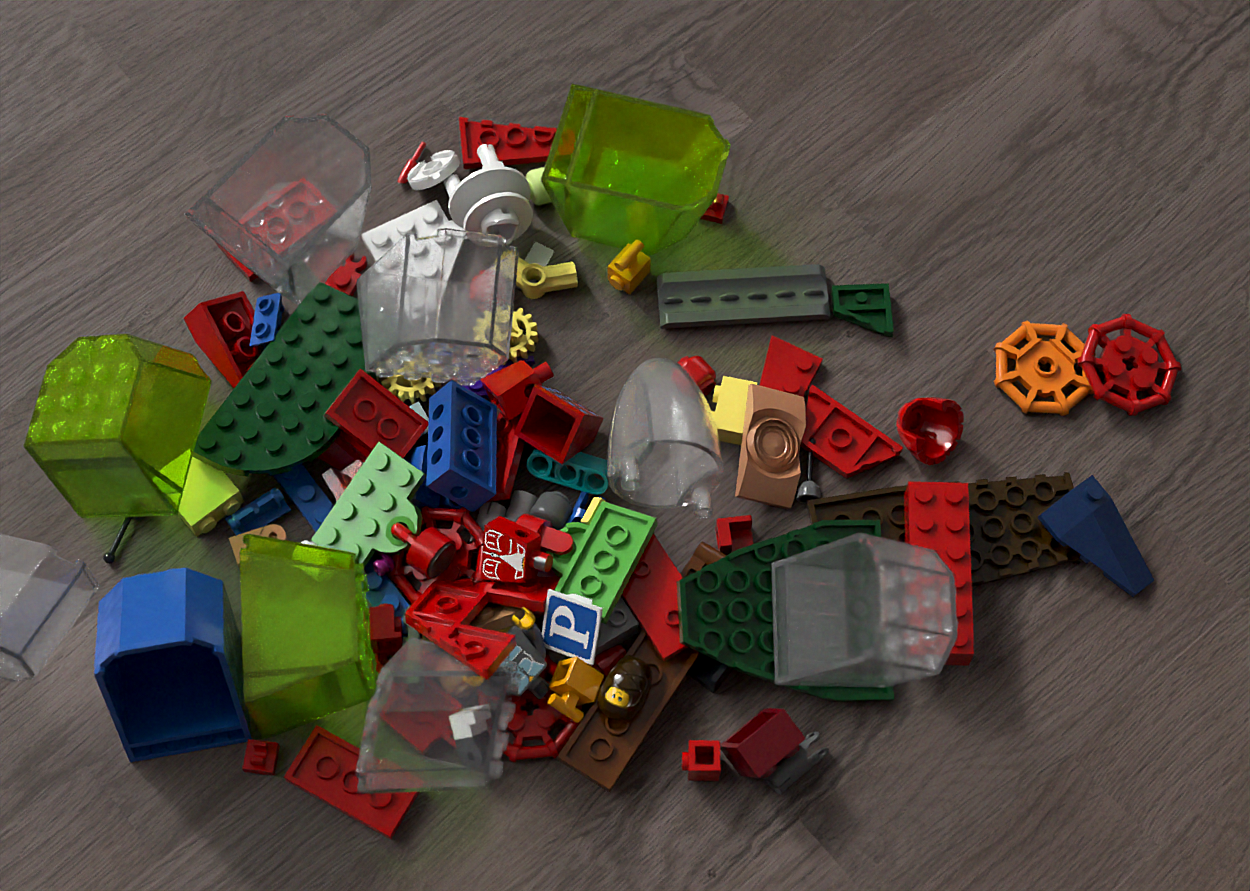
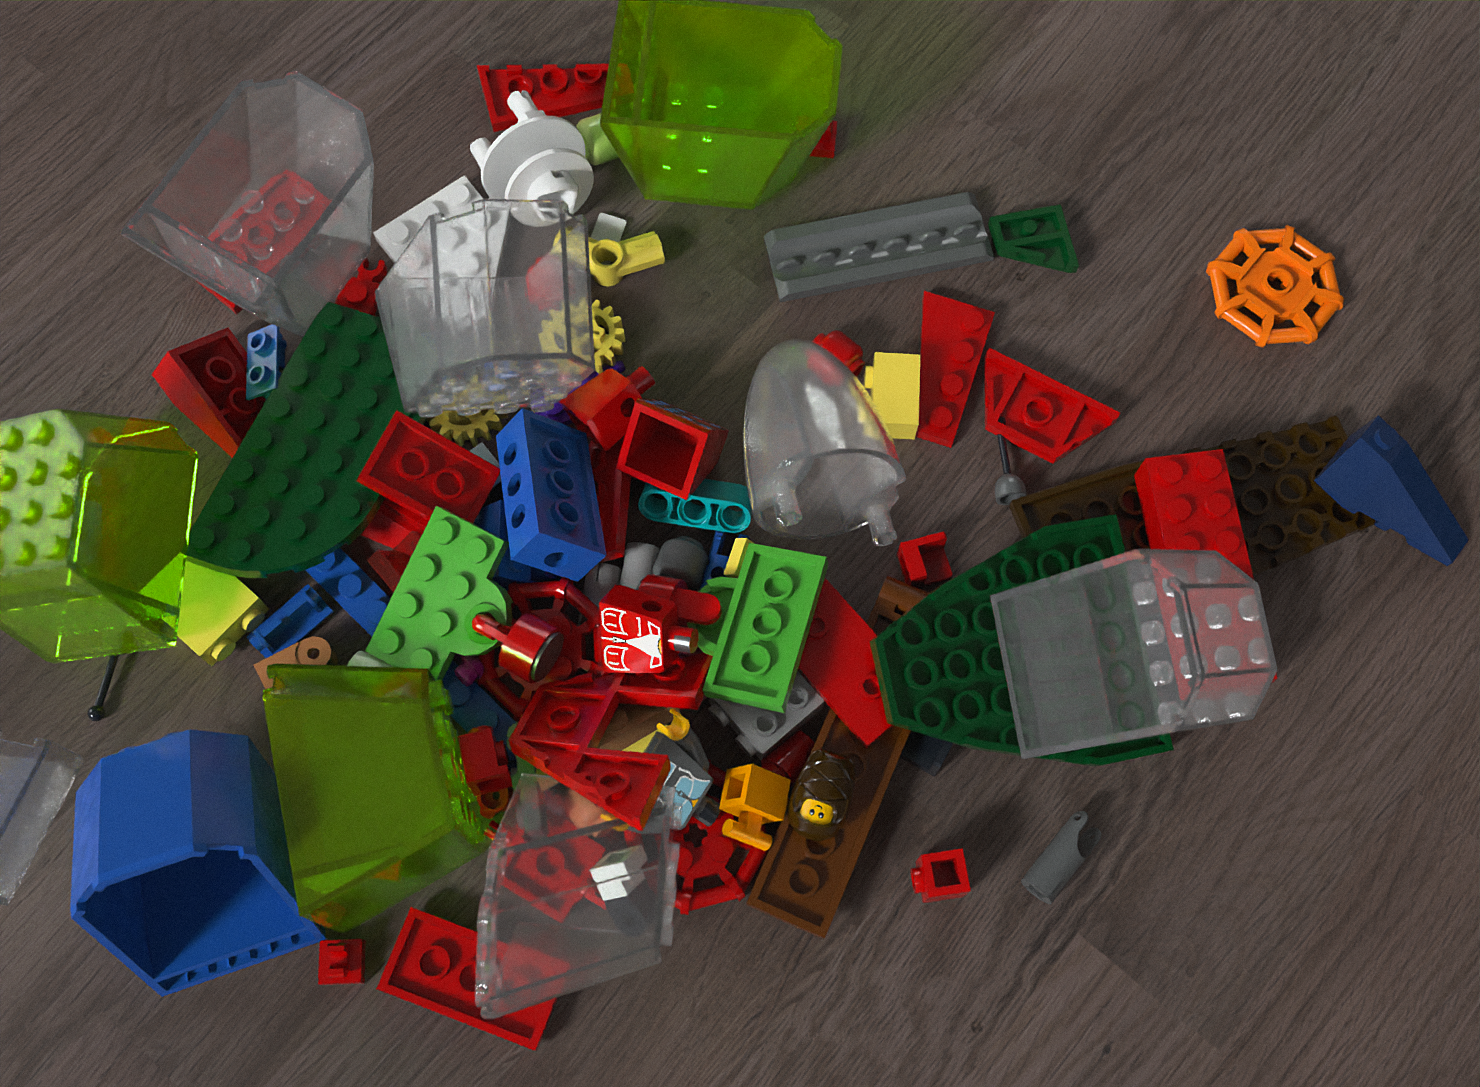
camera: 10 degrees left, 5 degrees up
(410, 164) = (424, 136): red piece -> none
(433, 172) = (456, 138): white tile -> none
(571, 625) = (739, 722): piece -> none
(629, 267) = (727, 228): light orange brick -> none
(763, 743) = (1019, 841): dark red piece -> none
(771, 447) = (953, 437): nougat slope -> none
(930, 428) = (1151, 382): red hair -> none
(1139, 354) = (1396, 258): red plate -> none

